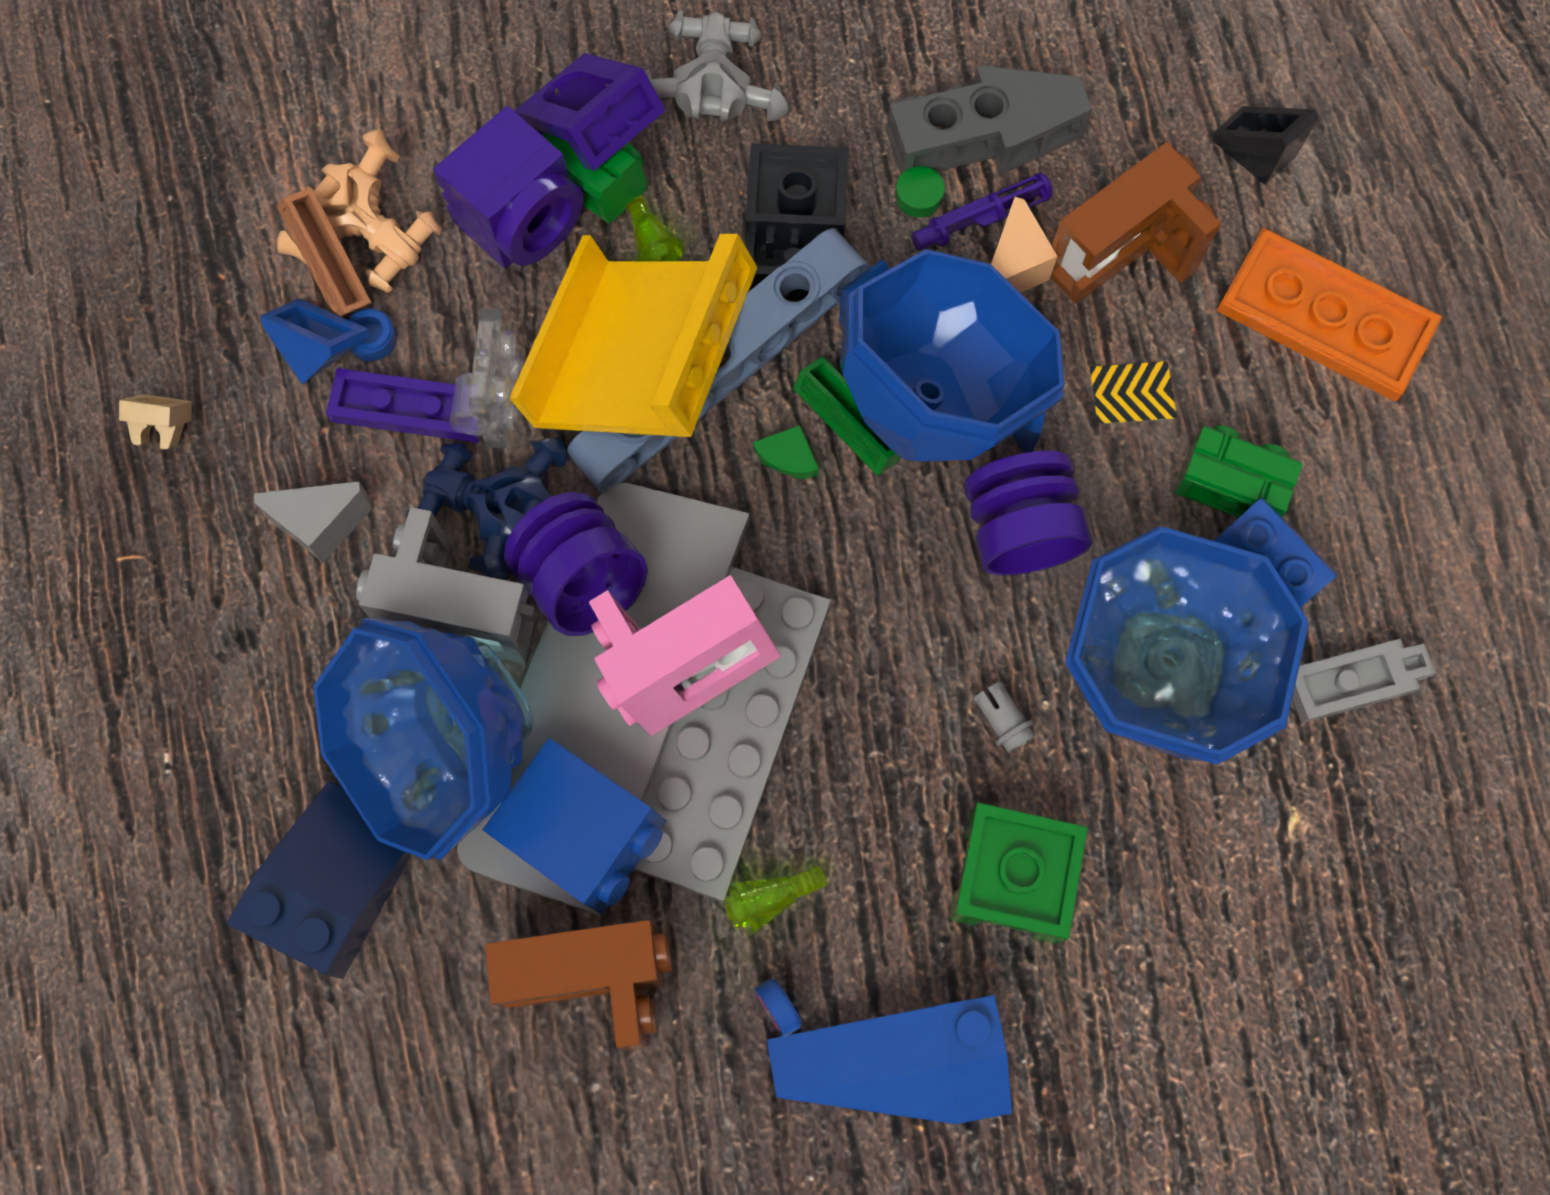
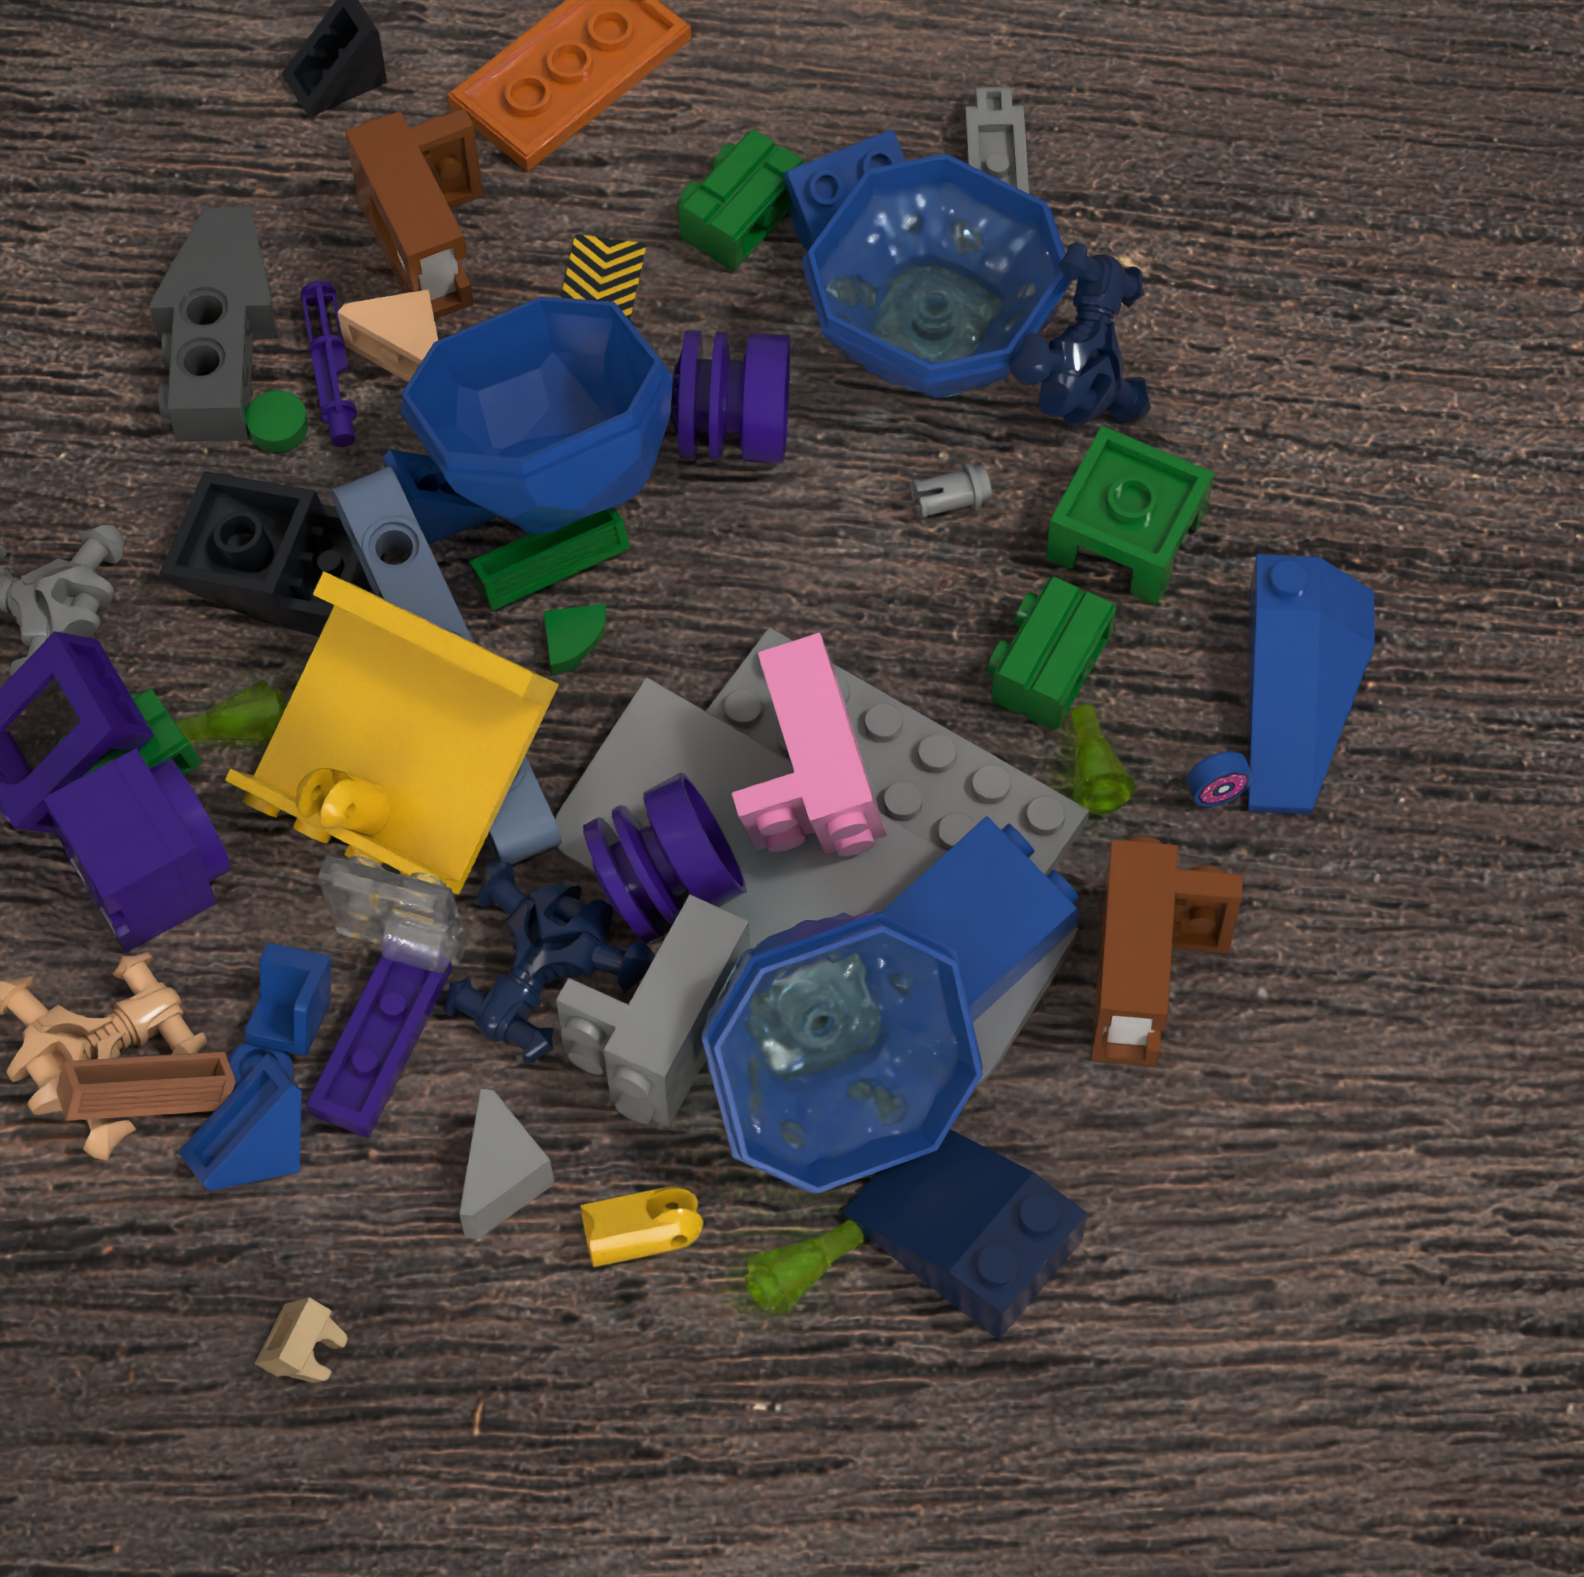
camera: 75 degrees left, 10 degrees down
(265, 750) = (785, 1274): none -> clear neon green cone
(283, 627) = (640, 1224): none -> yellow piece
(419, 337) = (292, 999): none -> blue panel
(570, 316) = (343, 801): none -> yellow piece
(865, 834) = (1051, 652): none -> green brick
(1143, 797) = (1084, 364): none -> dark blue piece

